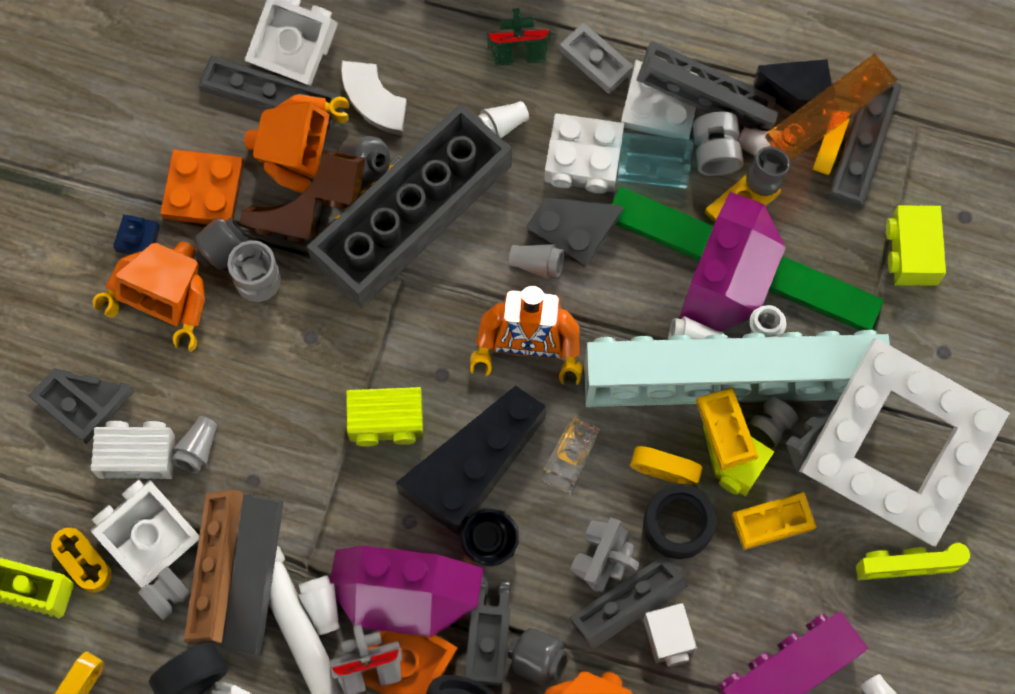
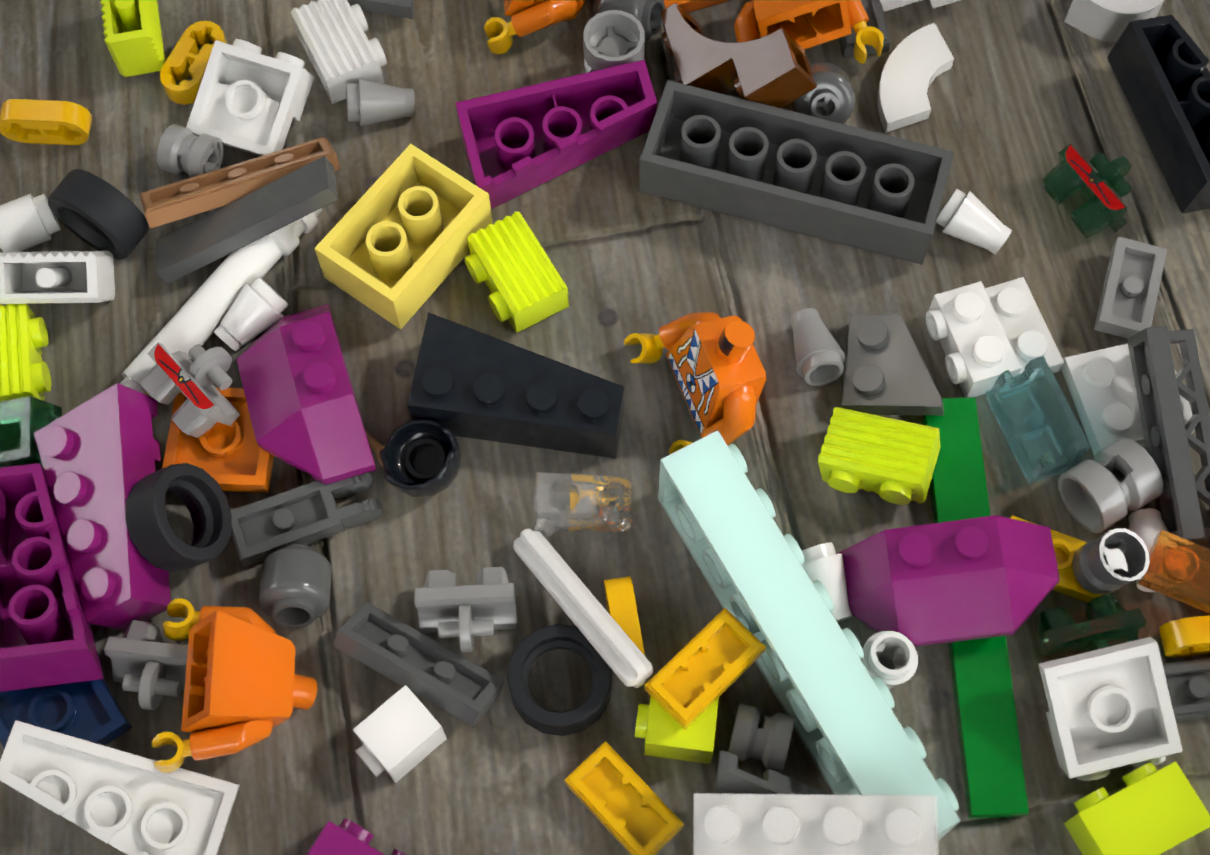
camera: 65 degrees right, 5 degrees down
(289, 349) = (552, 127): none -> magenta wedge
(322, 472) = (404, 236): none -> light yellow brick
(634, 261) = (879, 456): none -> neon yellow brick
(645, 484) = (583, 609): none -> white axle
(803, 195) = (1106, 626): none -> clear green hips
(853, 222) = (1110, 709): none -> white plate

